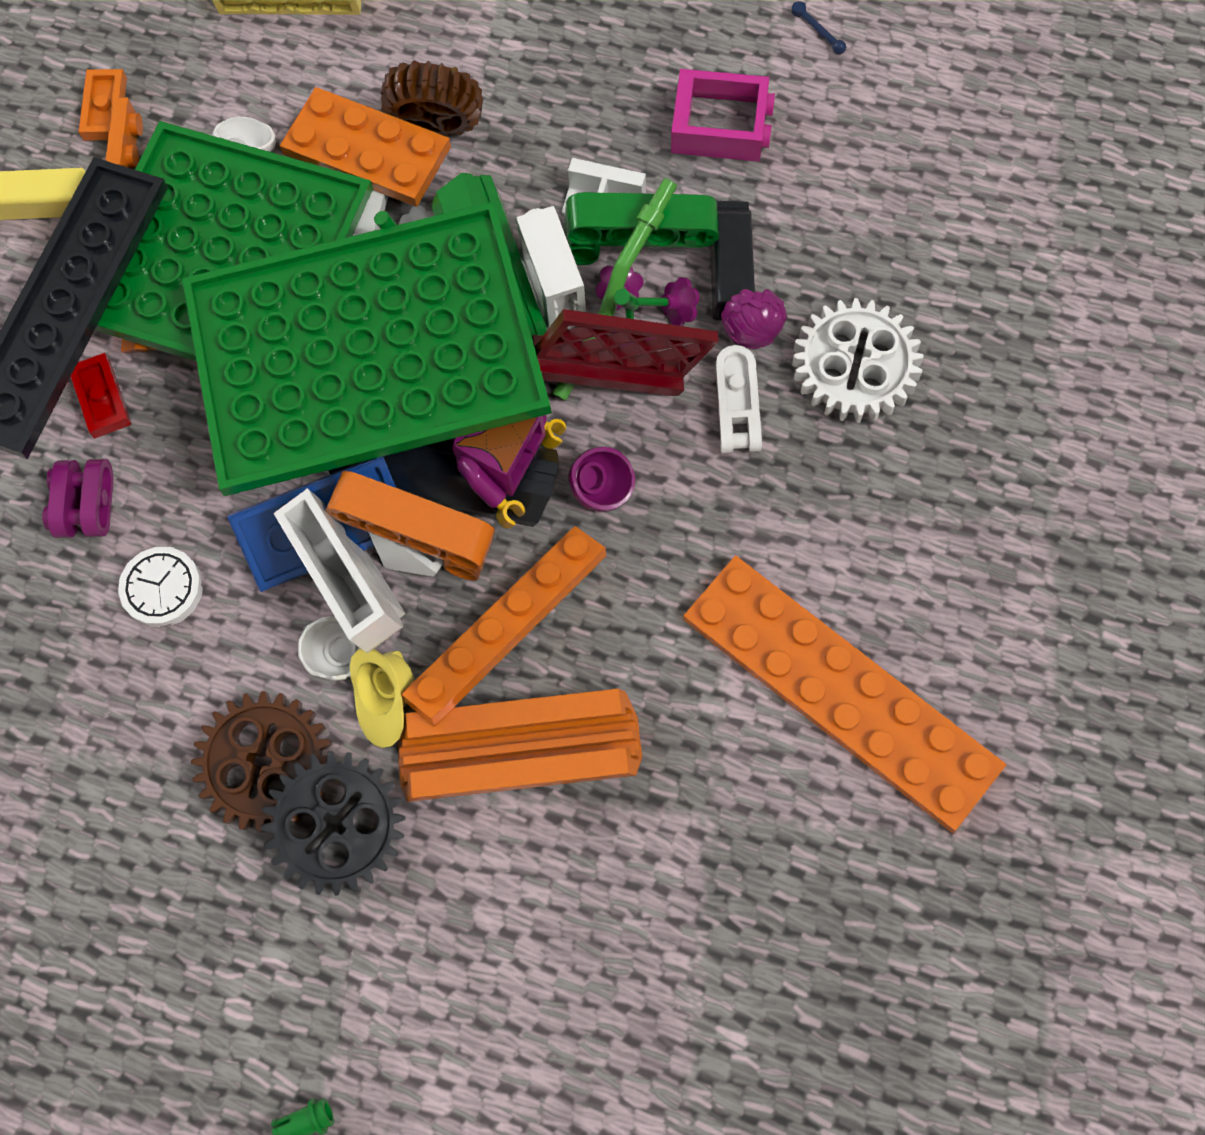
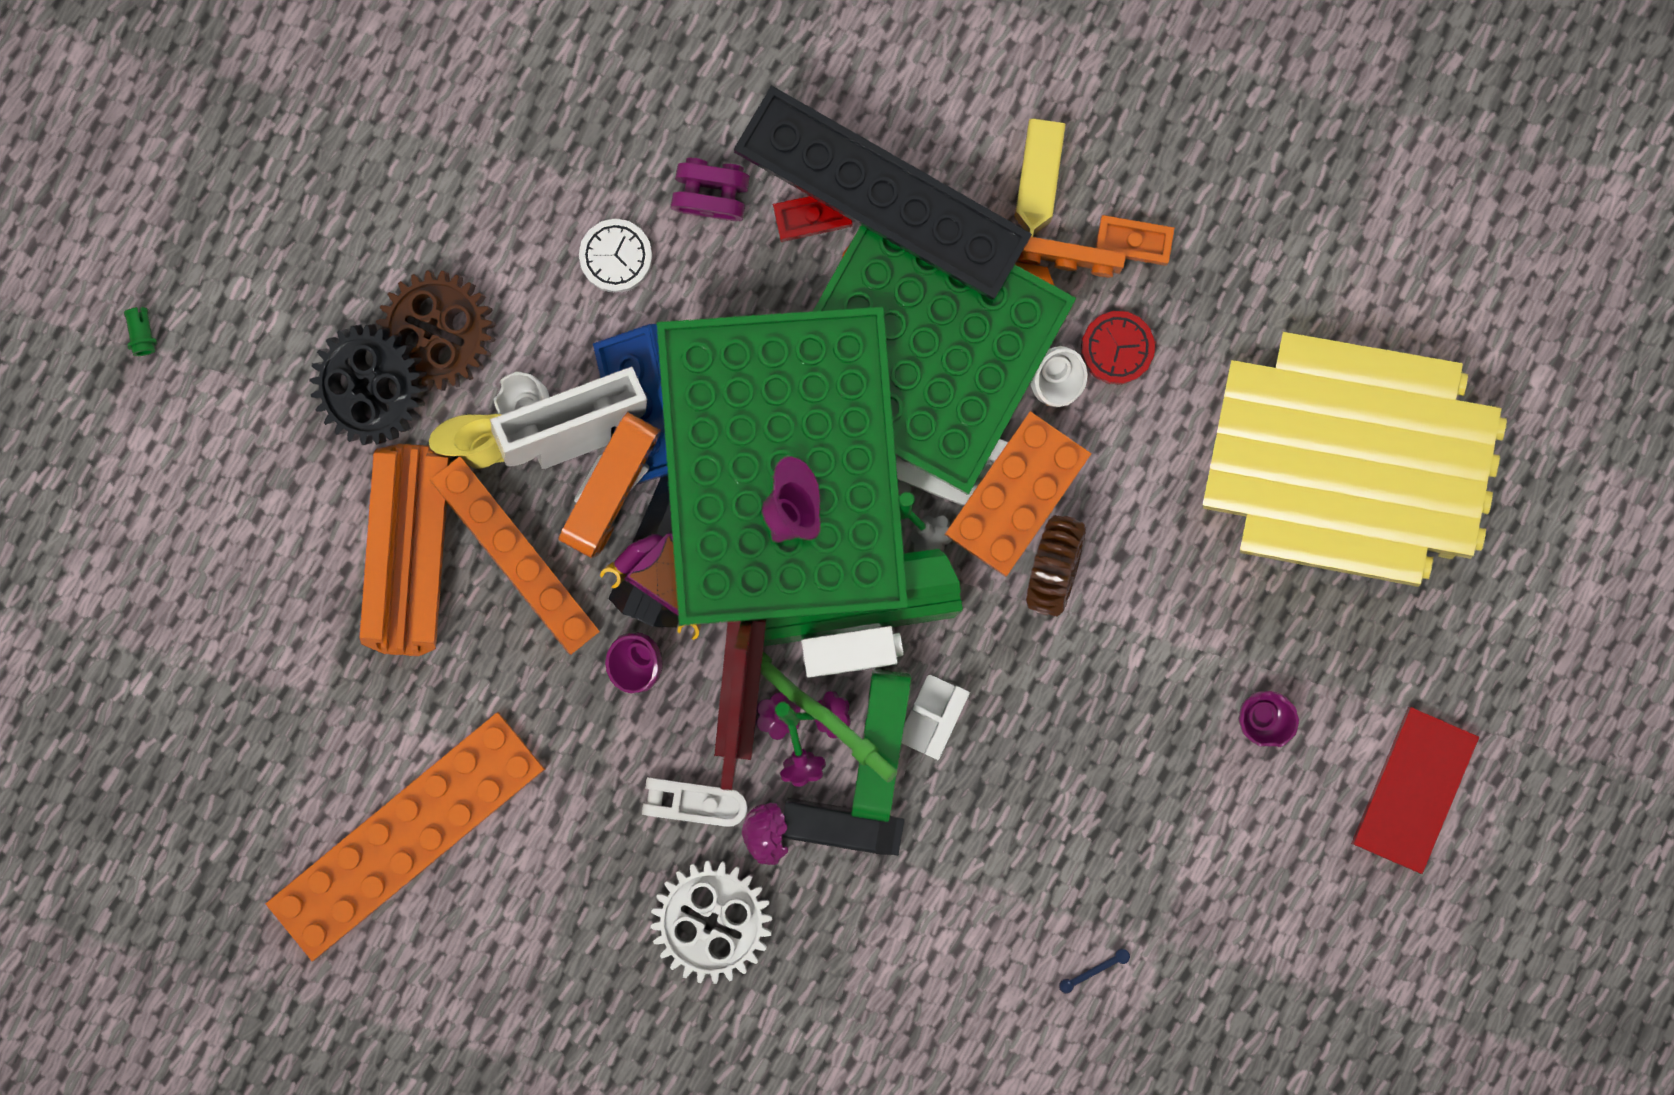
camera: 95 degrees right, 15 degrees up
(209, 100) = (1118, 347): none -> red tile
(406, 314) = (794, 502): none -> magenta piece
(715, 141) = (1013, 812): dark pink window -> none

